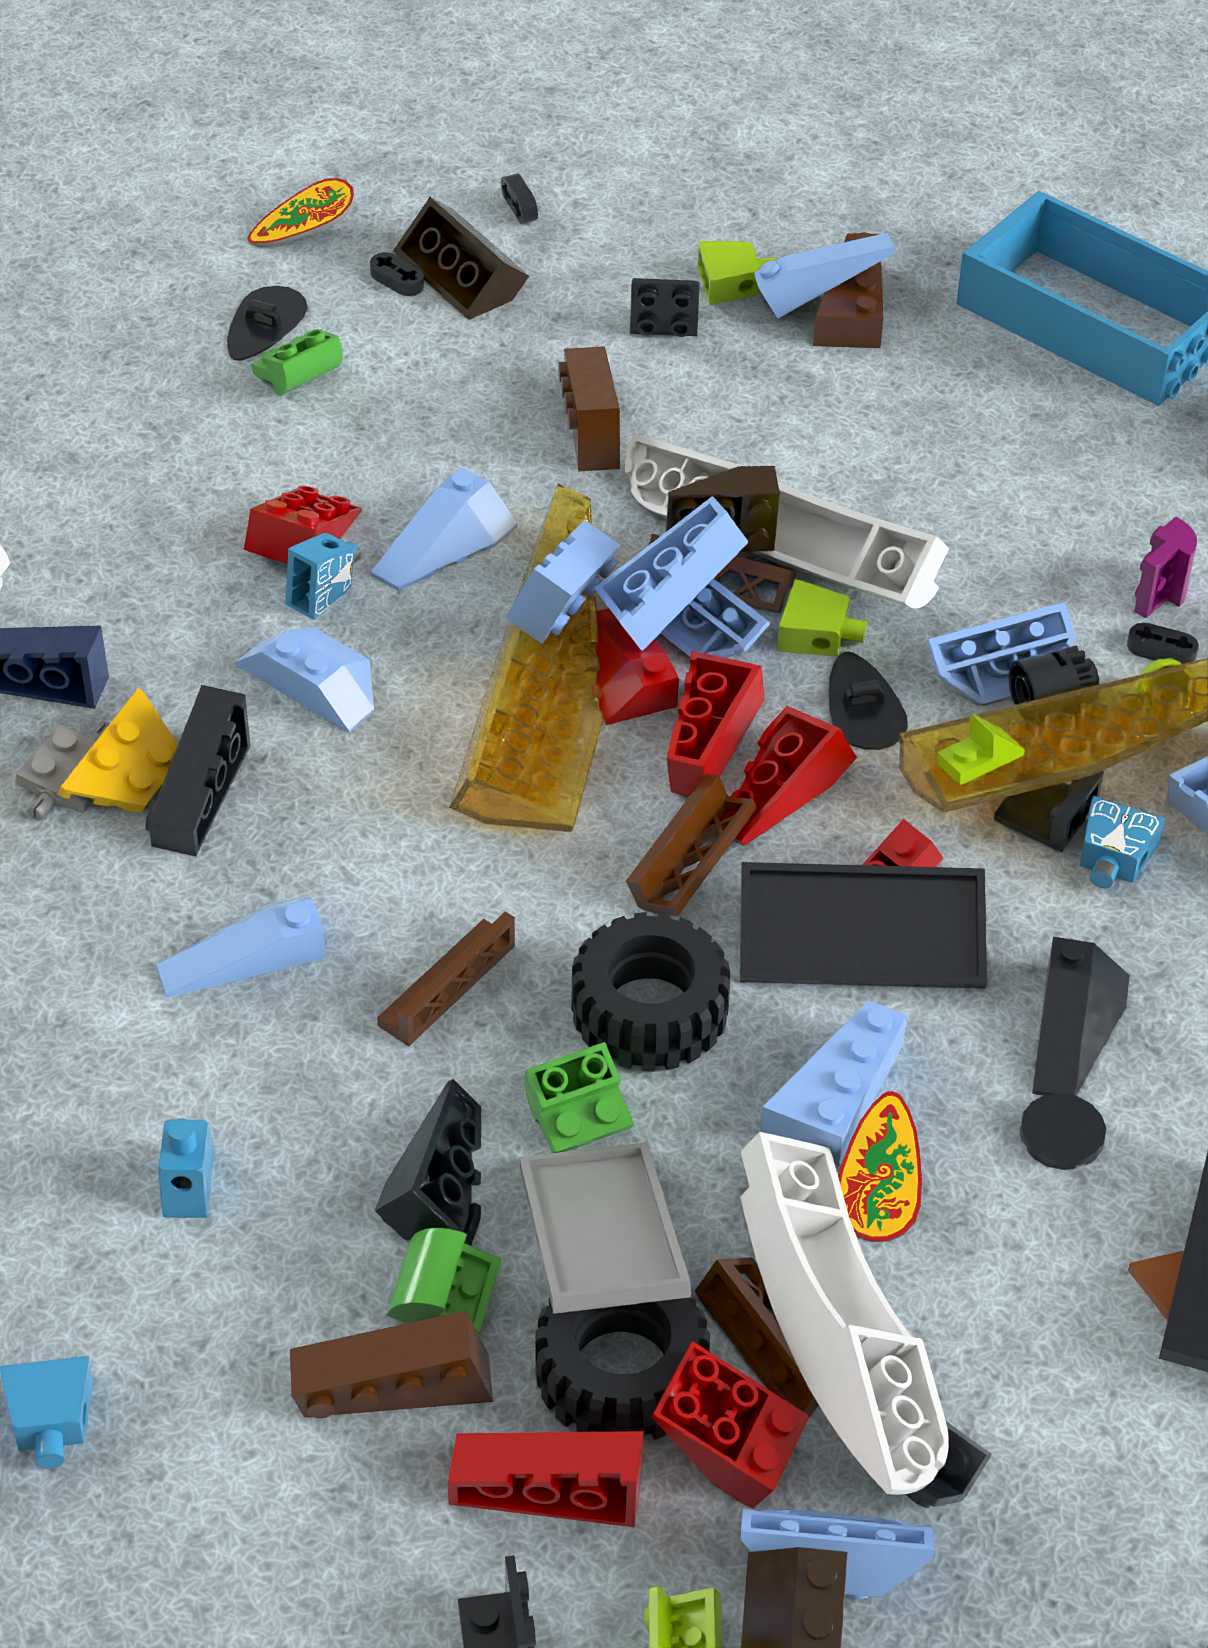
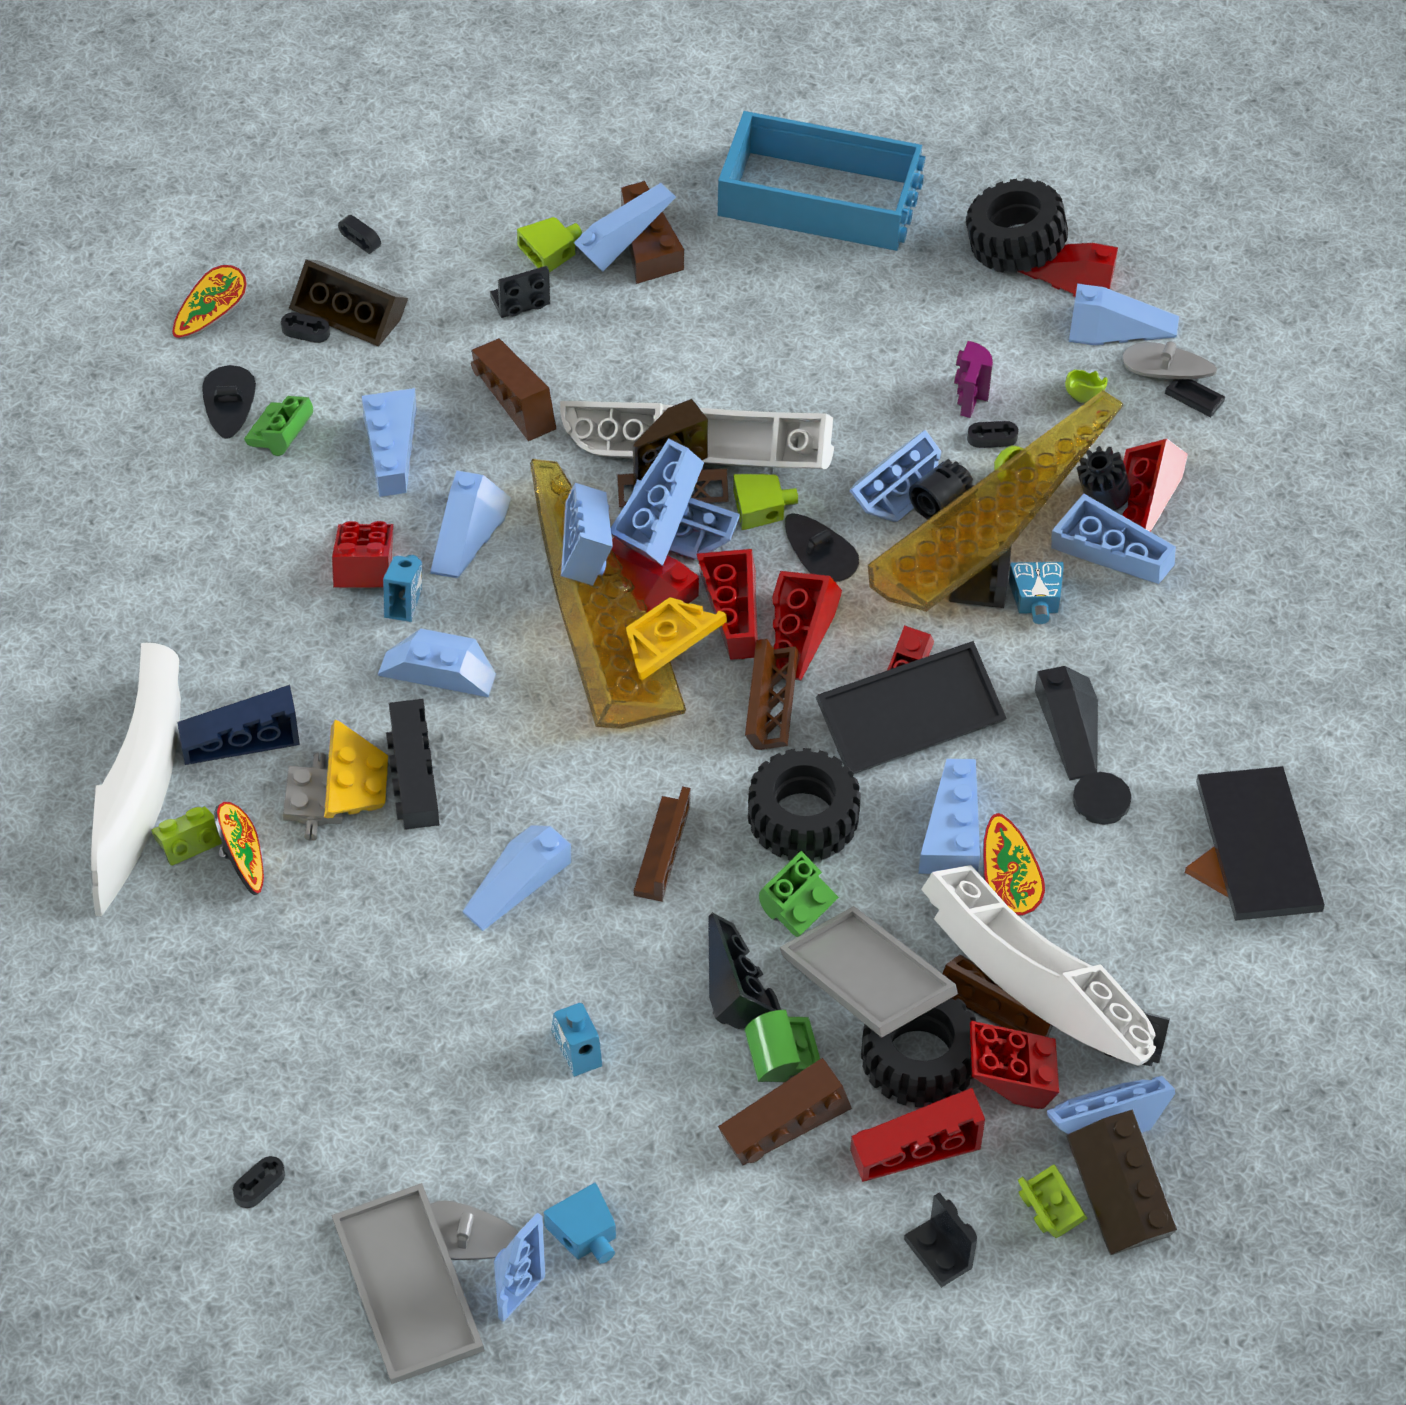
camera: 25 degrees left, 5 degrees up
(412, 413) = (390, 432): none -> light blue wedge
(598, 727) = (668, 633): none -> yellow wing
(979, 753) = (930, 561): lime slope -> none

